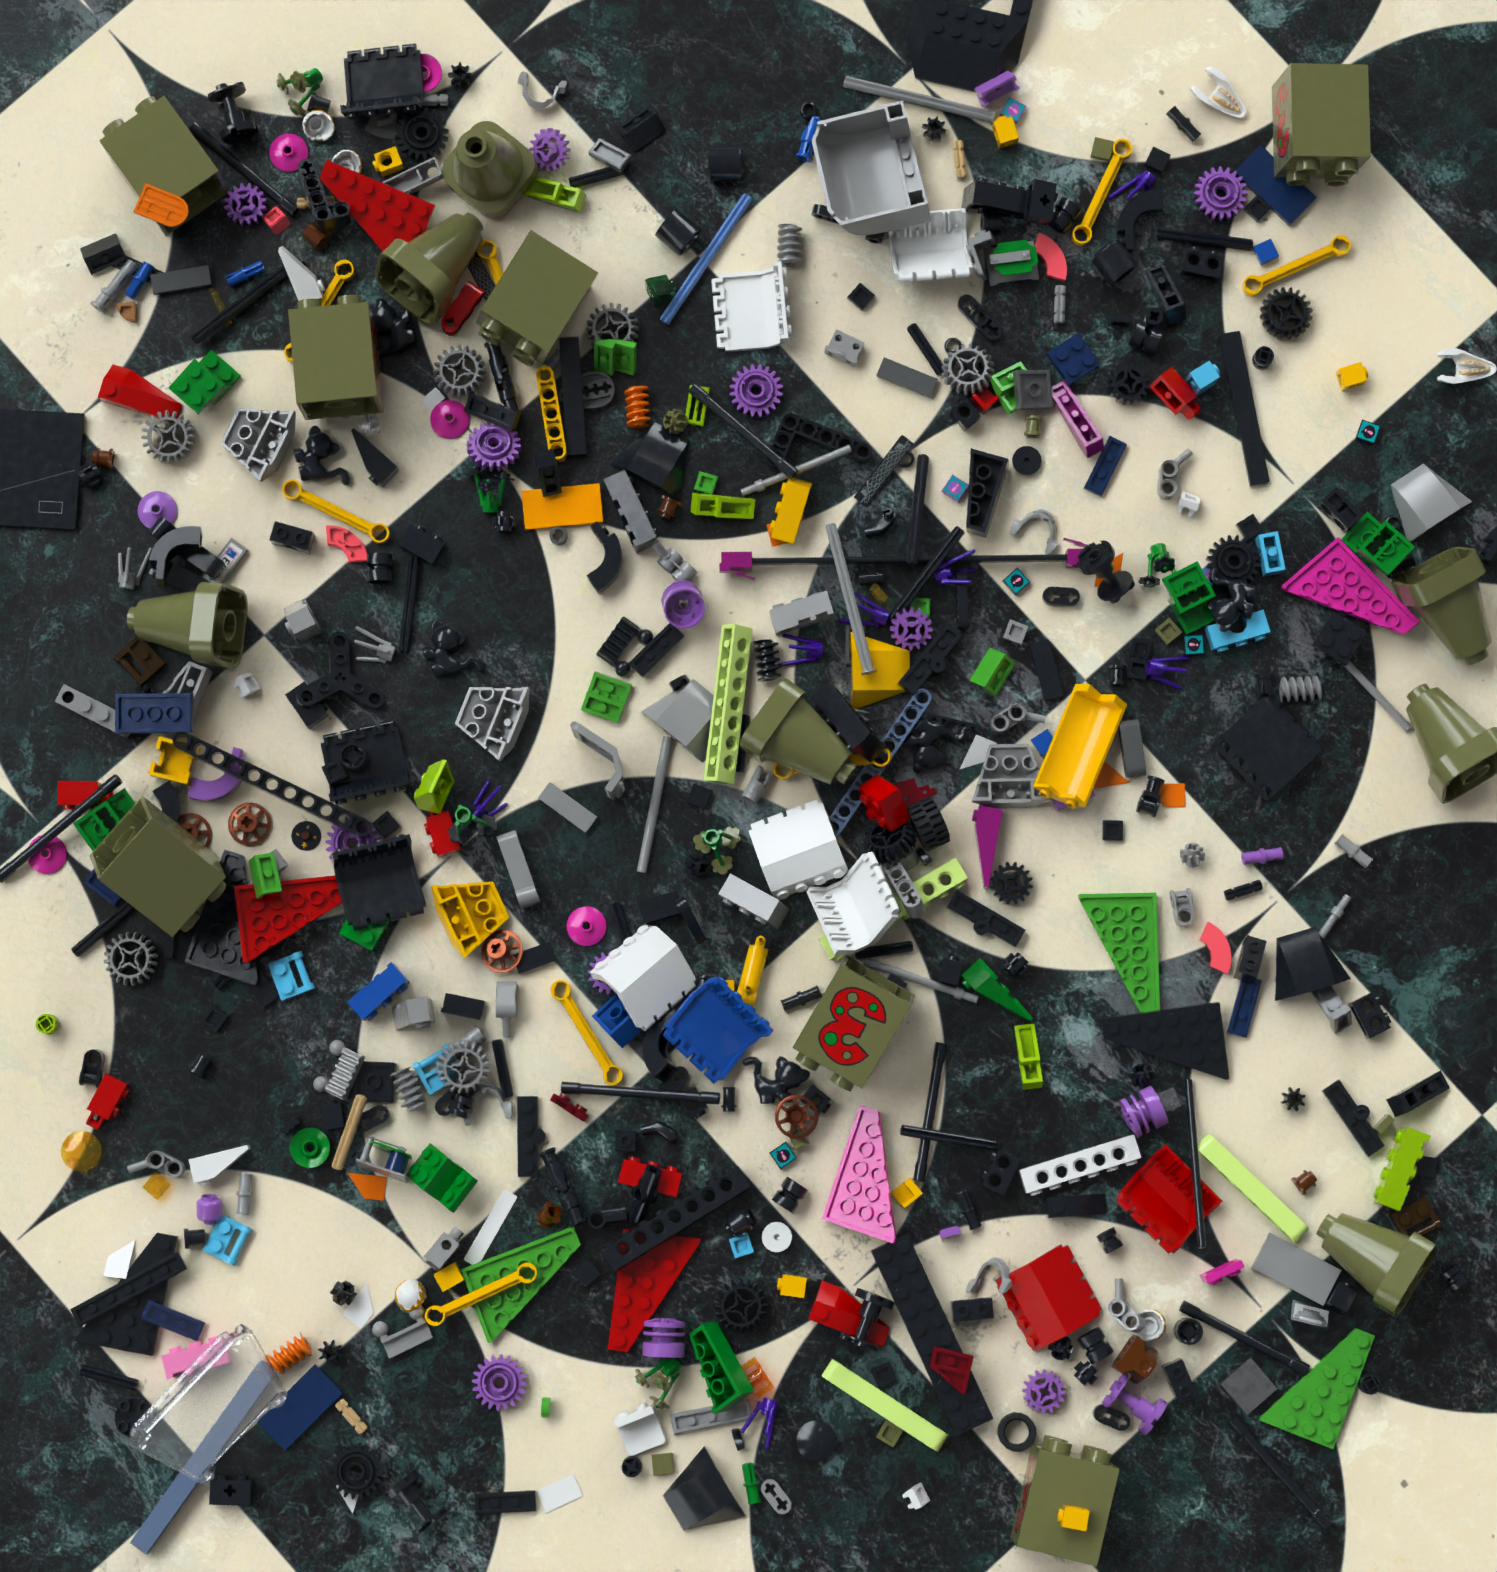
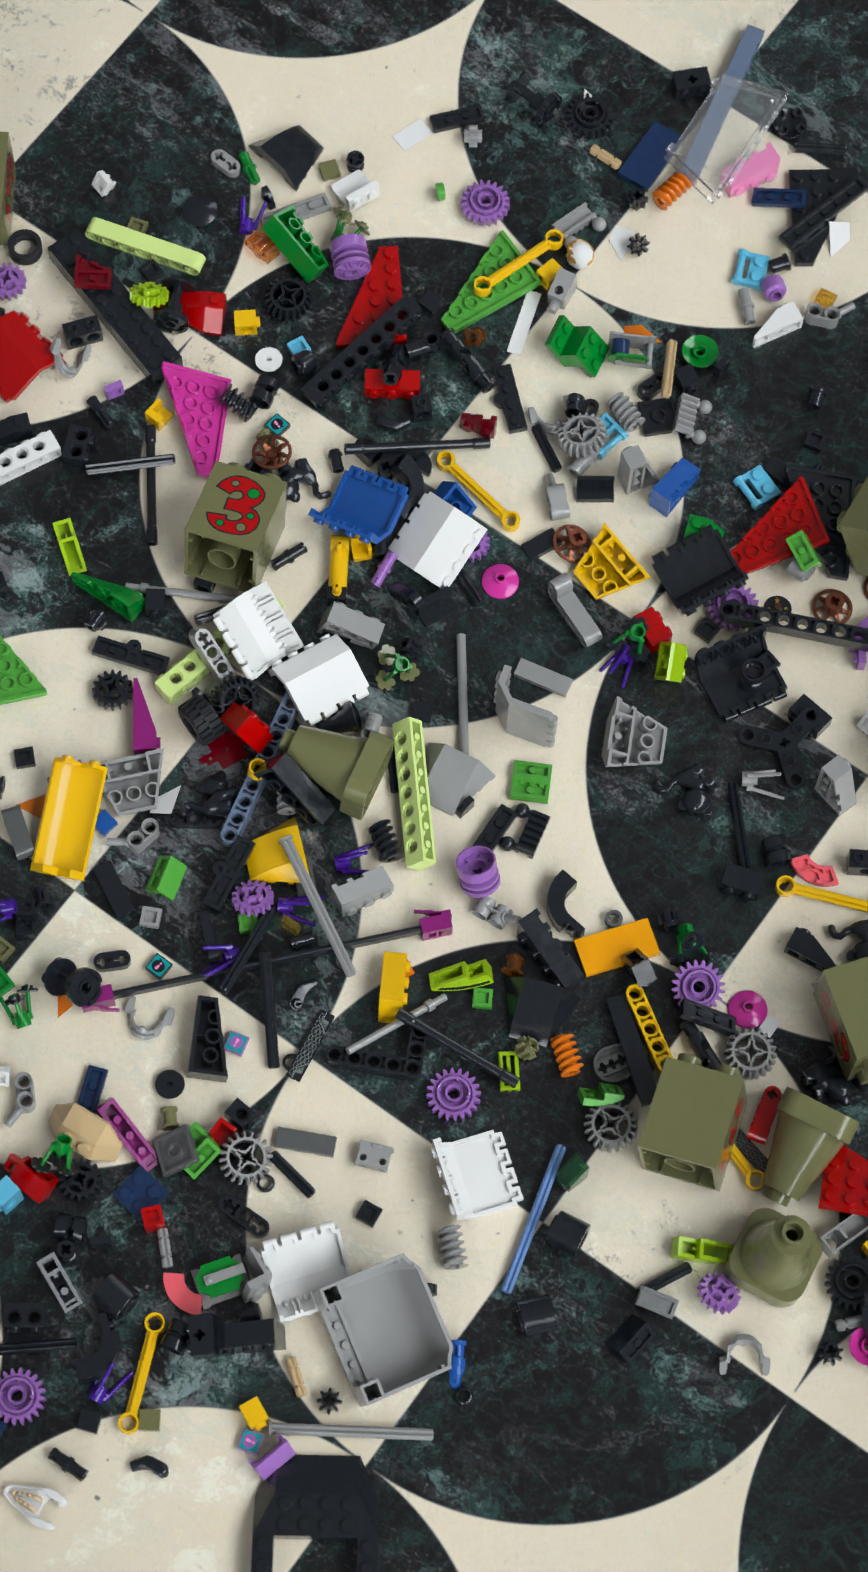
camera: 170 degrees right, 15 degrees down
(493, 1471) = (473, 135): none -> light grey gear
(636, 1076) = (424, 464): none -> black tile
(705, 960) = (384, 568): none -> medium lavender pin
(780, 798) = (344, 721): none -> black hat
(819, 1185) = (238, 403): none -> black piece
(893, 1331) = (149, 294): none -> lime gear
(1066, 329) = (153, 1218): none -> red panel
(1107, 108) = (152, 1464): none -> black arm
(1120, 424) = (89, 1133): none -> tan wedge
(1143, 407) = (59, 1155): none -> plant

